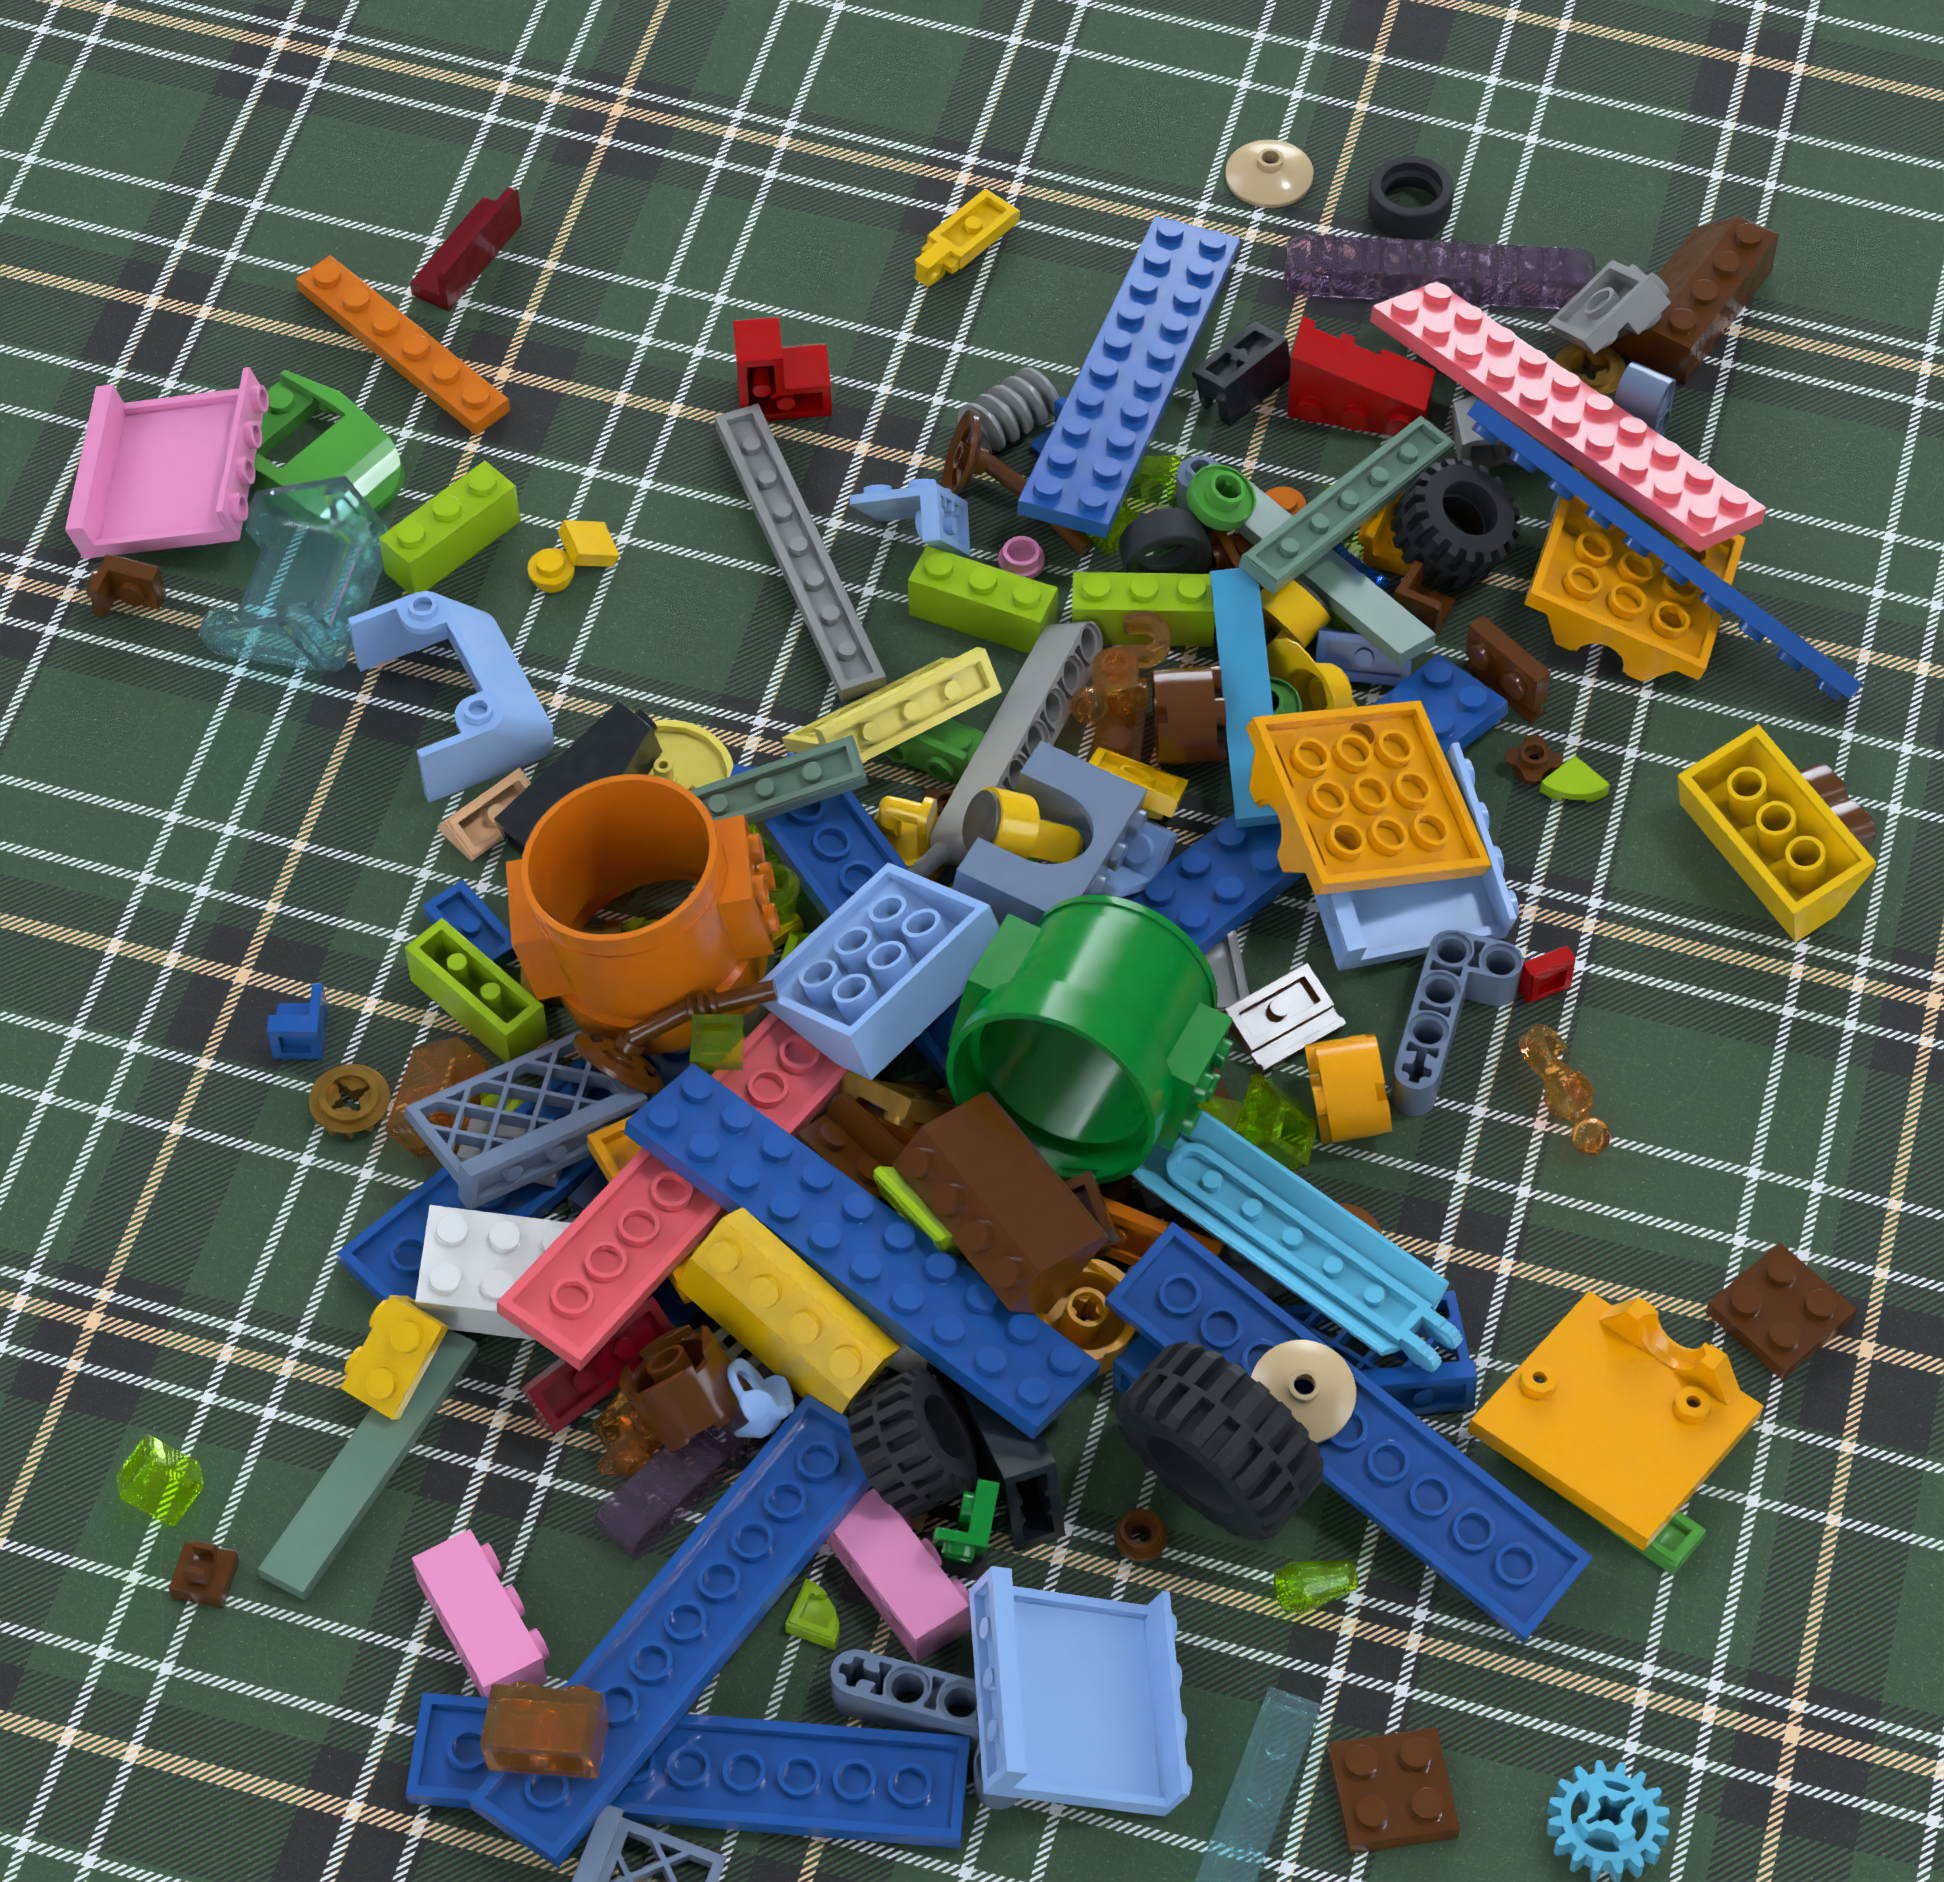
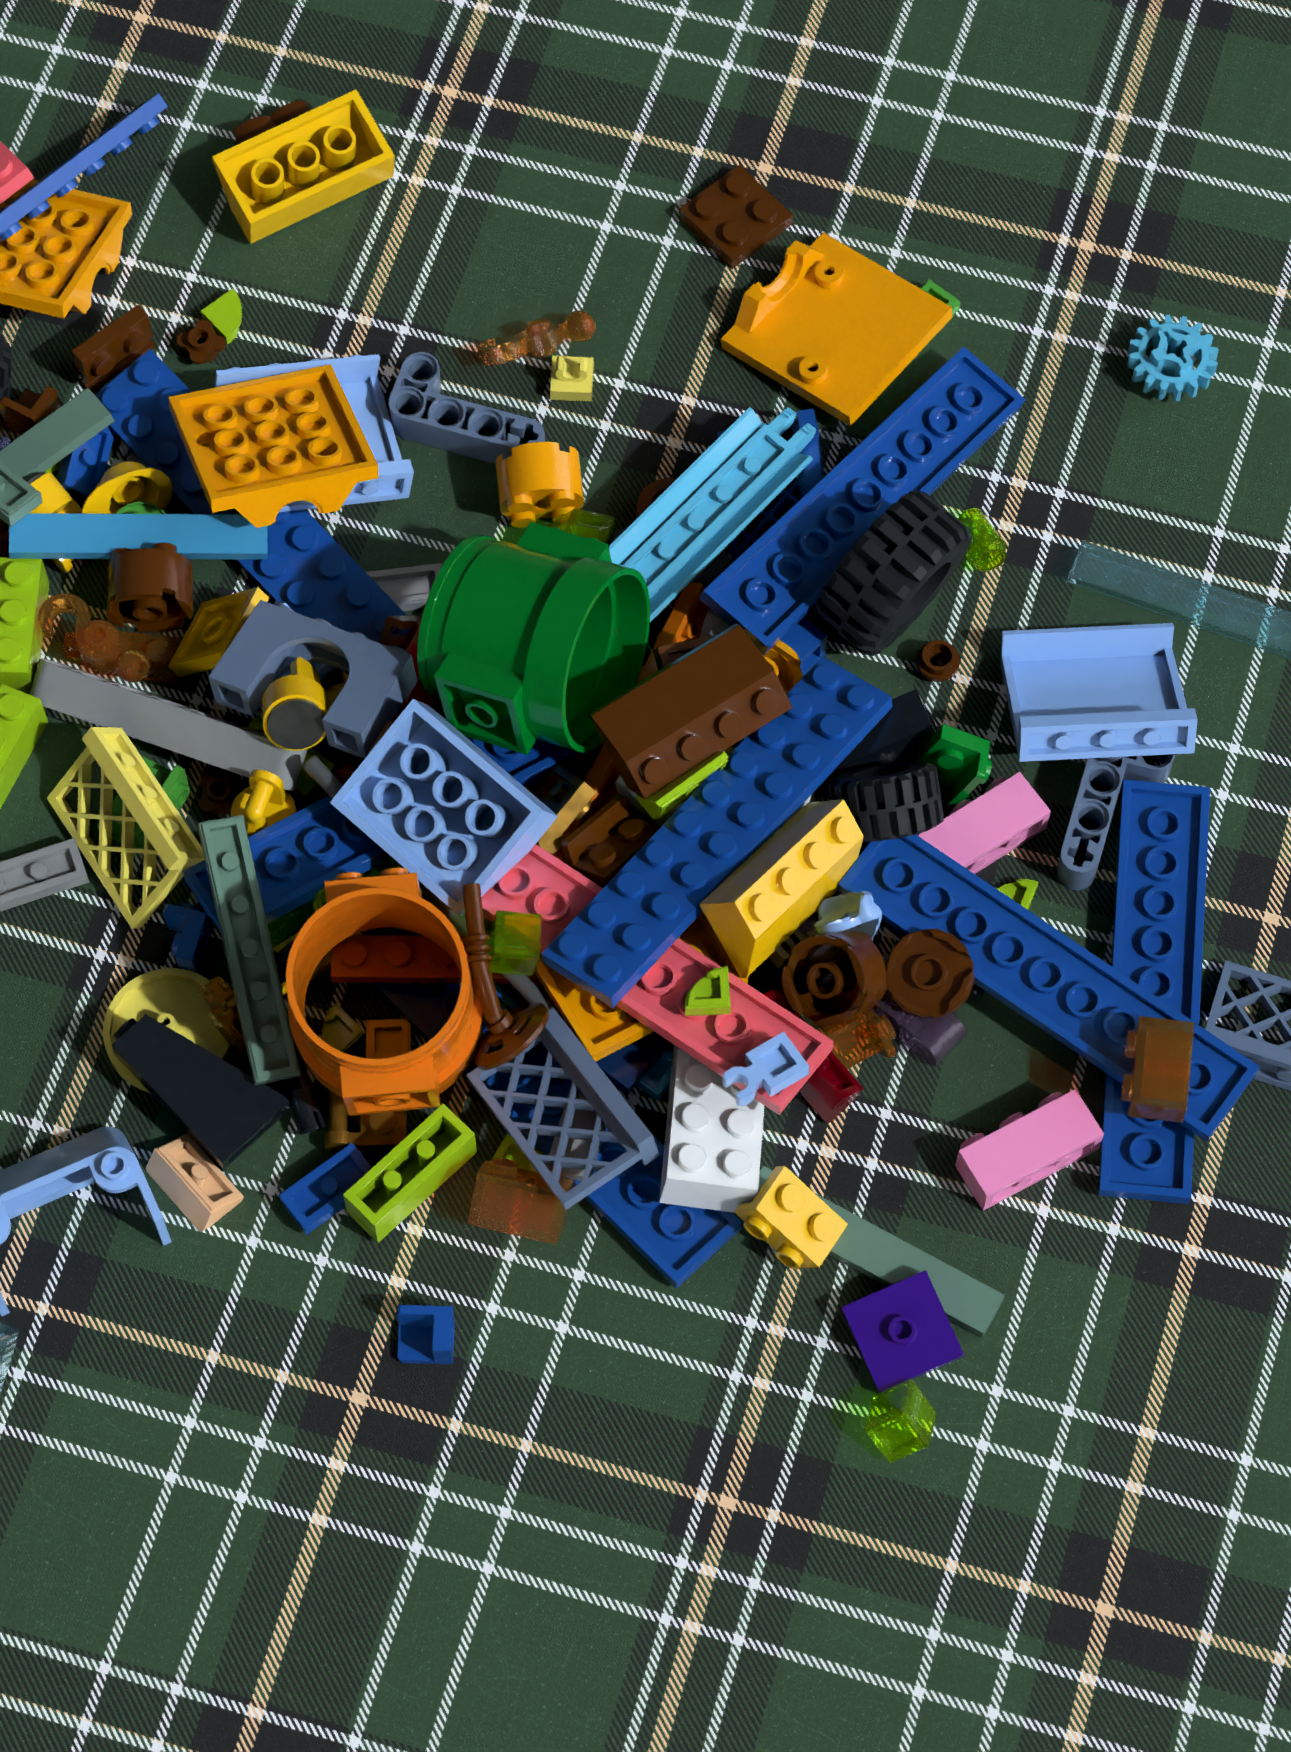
camera: 90 degrees left, 10 degrees up
(204, 1574) = (984, 1381): reddish brown tile -> none
(264, 1483) = (903, 1331): none -> dark purple plate
(357, 1082) = (513, 1267): pearl gold gear -> none
(536, 1284) = (770, 1066): none -> light blue plate
(642, 1233) = (710, 994): none -> lime tile
(689, 1492) = (929, 973): none -> reddish brown tile
(1283, 1018) = (446, 525): plate -> none
(1334, 1393) = (829, 524): tan dish -> none
(1393, 1790) = (1146, 499): reddish brown plate -> none
(1521, 1134) = (571, 378): none -> light yellow tile
(1547, 974) = (422, 337): red tile -> none

